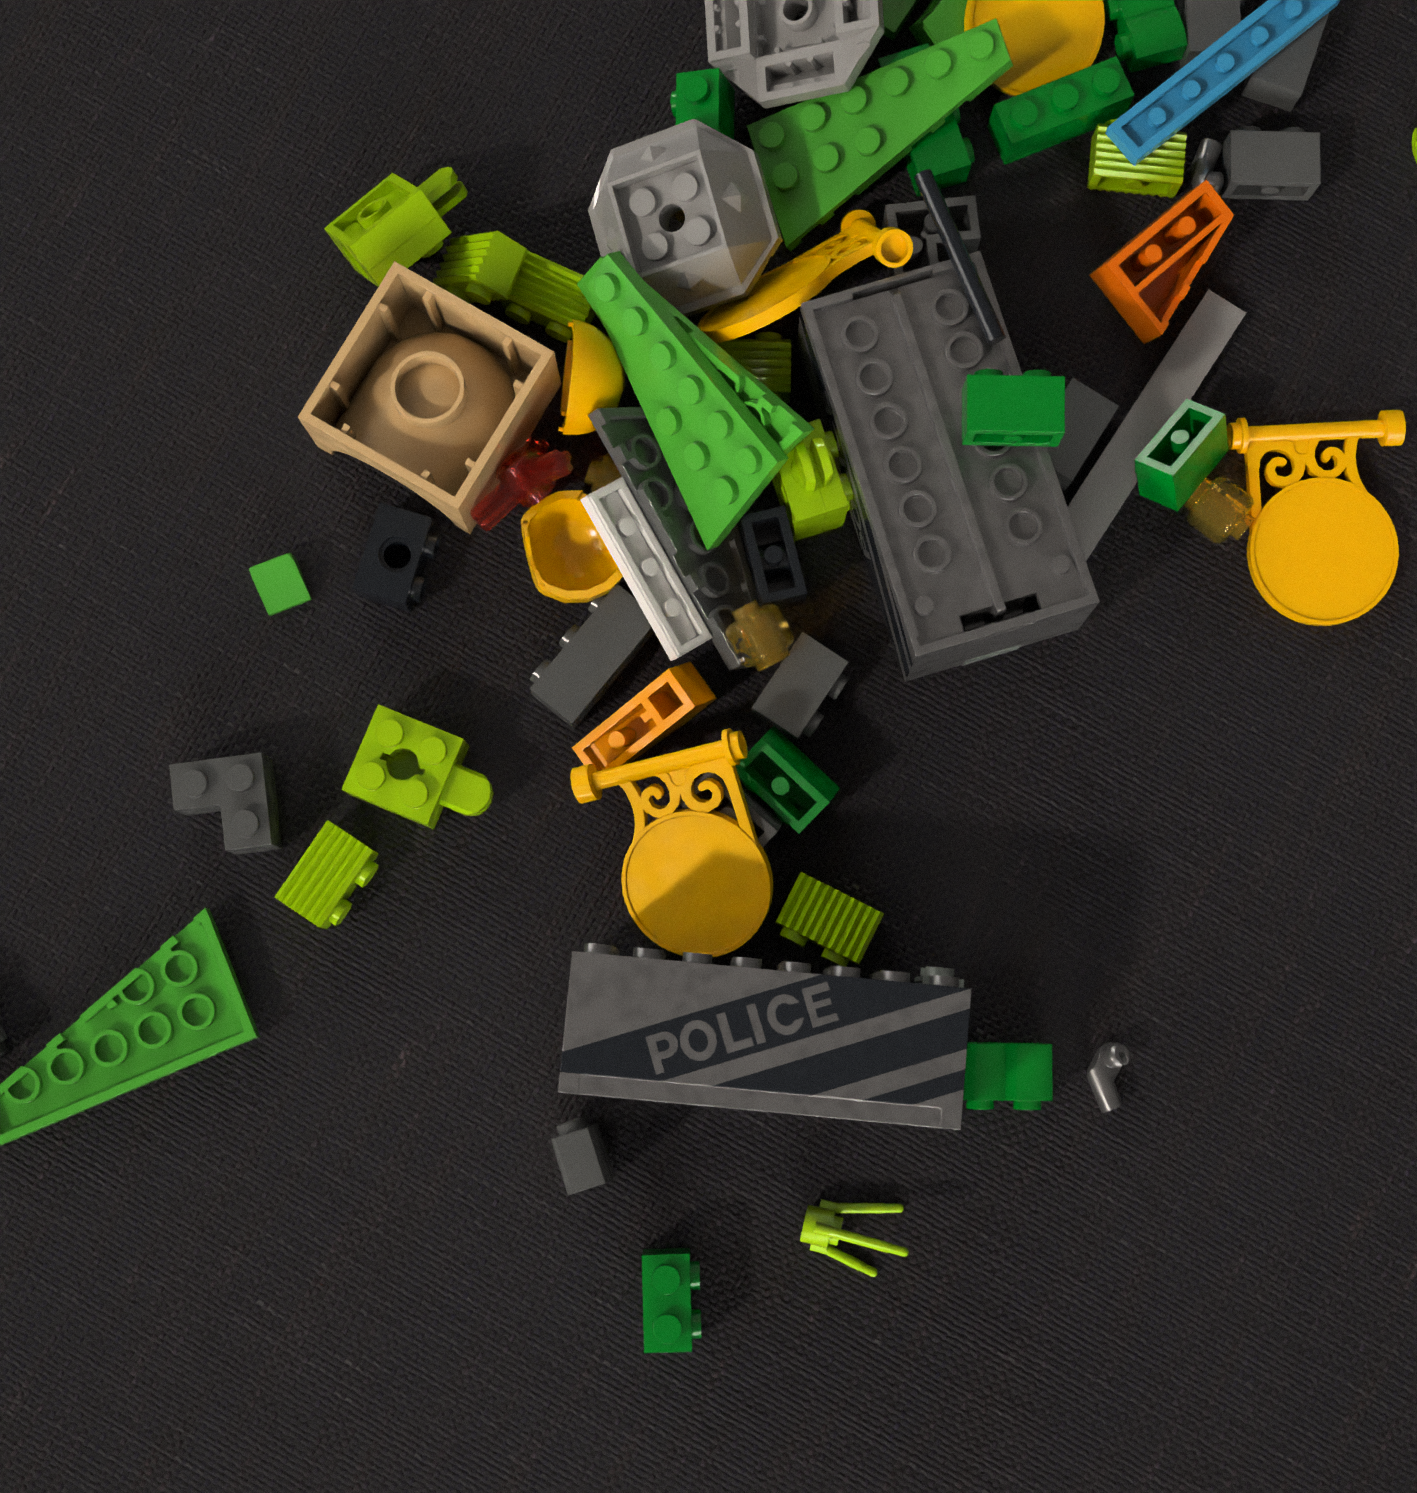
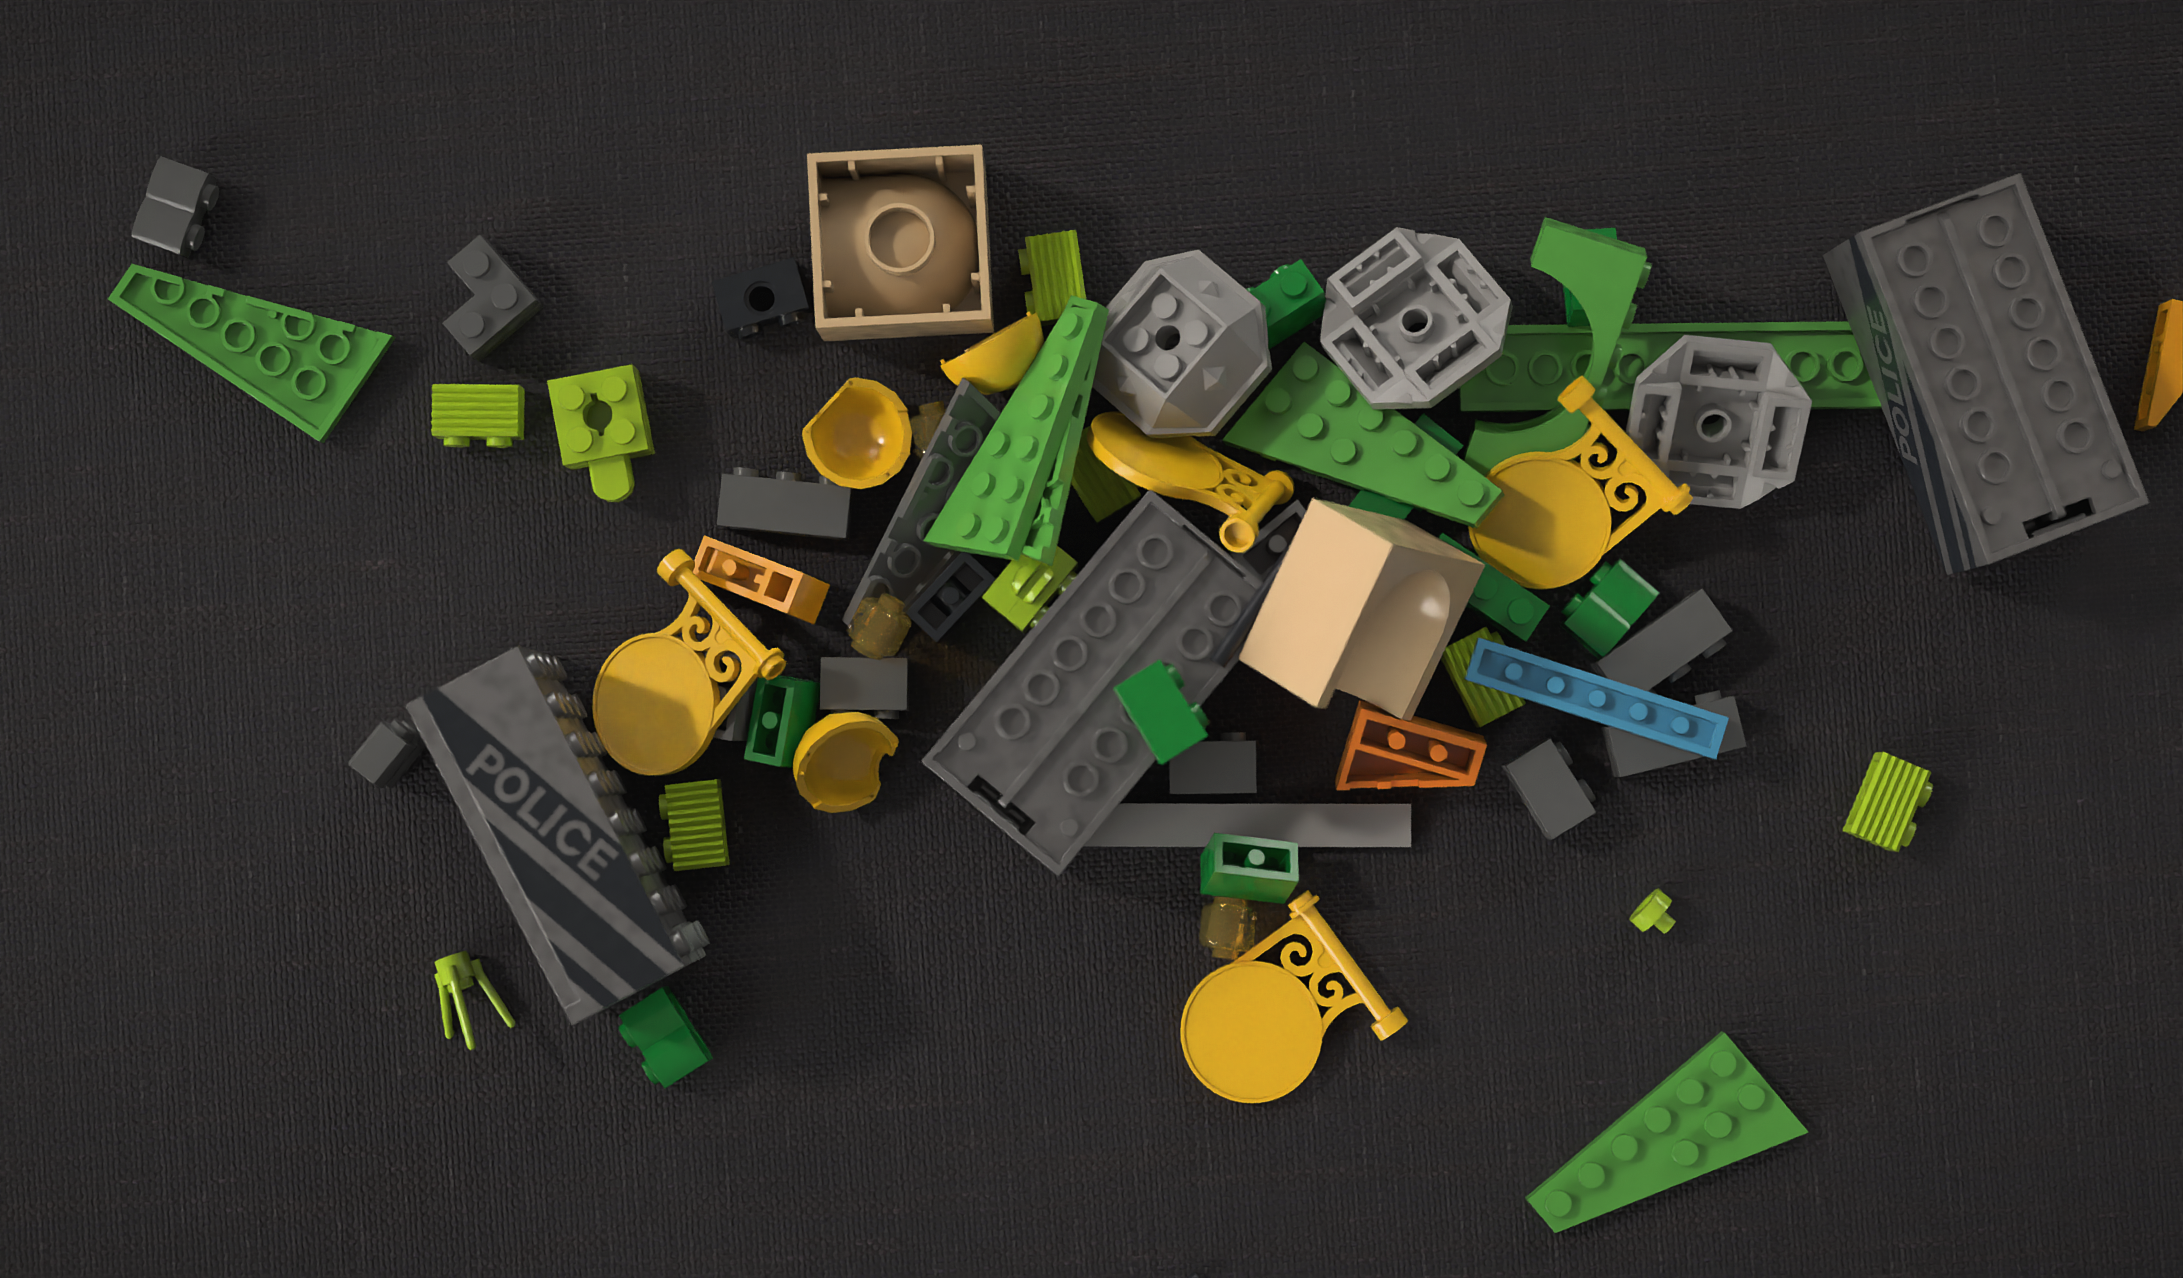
camera: 60 degrees right, 5 degrees up
(280, 583) = (683, 220): bright green slope -> none
(396, 223) = (1026, 118): lime brick -> none
(481, 267) = (1034, 208): lime brick -> none
(523, 479) = (884, 359): clear red bush -> none
(646, 568) = (874, 503): white tile -> none
(667, 1305) = (324, 889): green brick -> none
(853, 750) = (841, 761): none -> yellow cylinder
(1025, 193) = (1360, 609): none -> tan piece
(1103, 1072) = (717, 1115): flat silver arm -> none
(1204, 163) = (1510, 735): flat silver arm -> none

